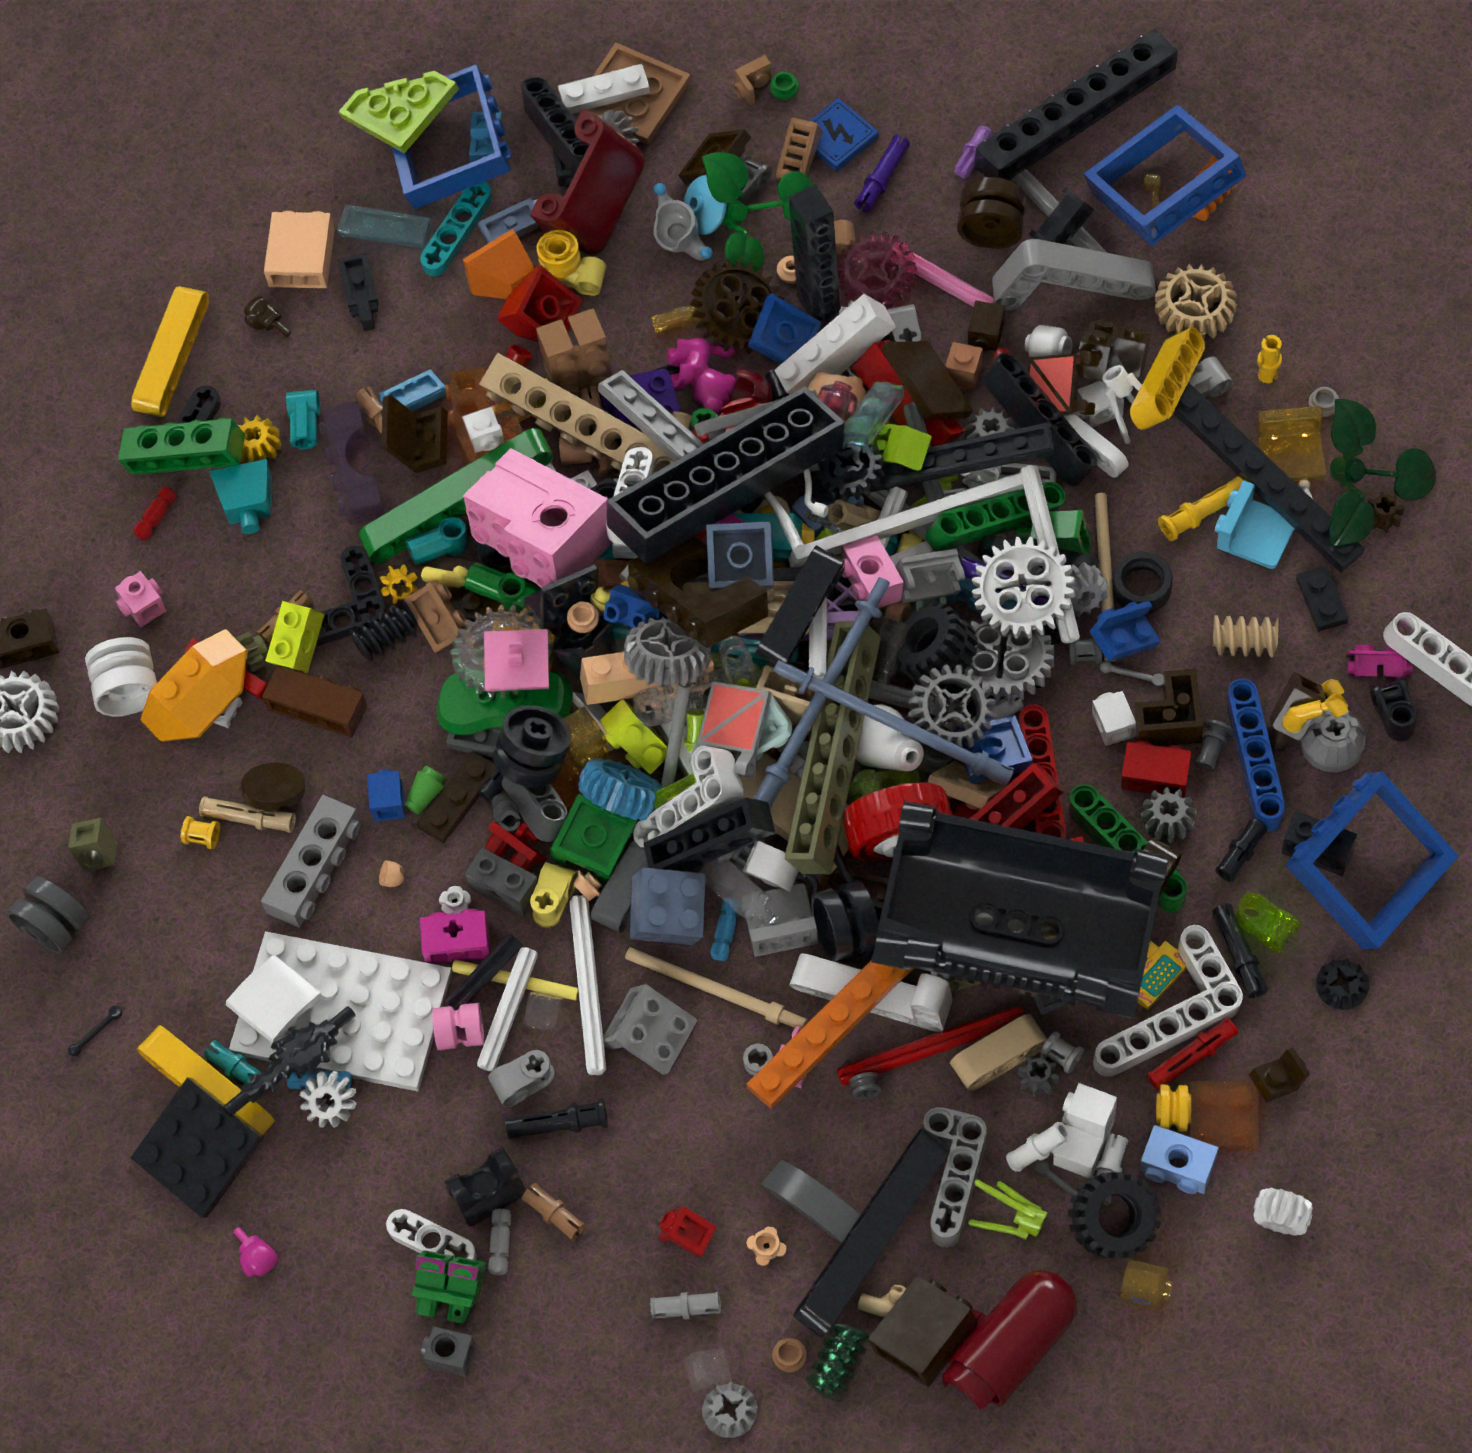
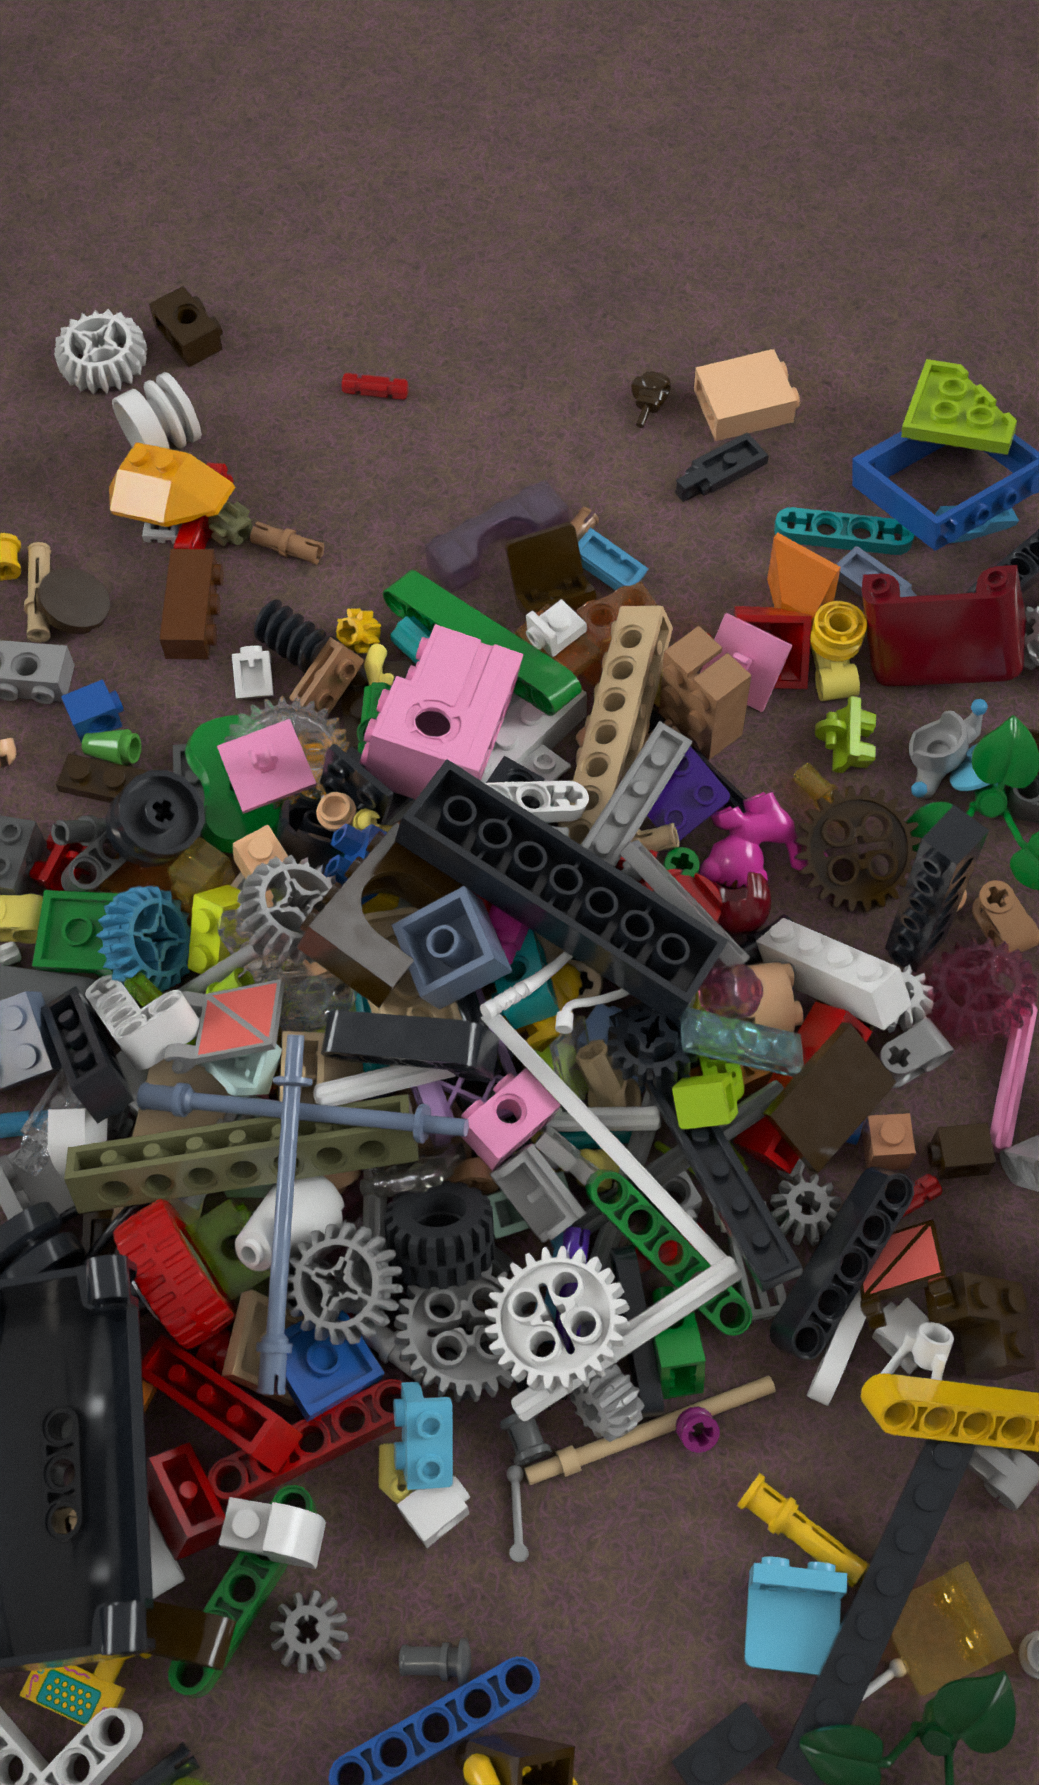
camera: 65 degrees right, 0 degrees up
(140, 598) = (260, 405): bright pink brick -> none
(169, 351) = (571, 327): yellow beam -> none
(181, 446) = (451, 372): green brick -> none
(194, 408) = (511, 380): black beam -> none
(245, 493) = (422, 452): teal torso -> none
(260, 440) = (490, 439): yellow gear -> none
(294, 637) = (252, 553): neon yellow brick -> none
(303, 410) = (548, 464): teal piece -> none
(361, 602) = (331, 605): black beam -> none
(384, 226) = (812, 462): clear light blue plate -> none
(401, 671) = (252, 673): none -> white bracket
(545, 311) = (756, 652): none -> bright pink piece
(587, 885) = (23, 951): light nougat plate -> none
(638, 285) = (842, 734): none -> lime hips
(782, 329) = (849, 910): blue tile -> none
(1048, 341) = (967, 1240): white head -> none
(1069, 699) = (426, 1438): none -> medium azure bracket
(1084, 740) = (391, 1480): none -> light yellow arm
(1103, 800) = (273, 1530): none -> white brick
(1116, 545) = (709, 1434): none -> magenta bush
(1125, 631) = (561, 1483): blue bracket -> none
(1144, 561) = (672, 1452): black tyre -> none
(1155, 768) = (373, 1592): red brick -> none
(1175, 718) = (459, 1599): dark brown brick -> none
(1241, 850) = (285, 1754): black pin -> none
(1245, 636) = (614, 1656): tan piece -> none

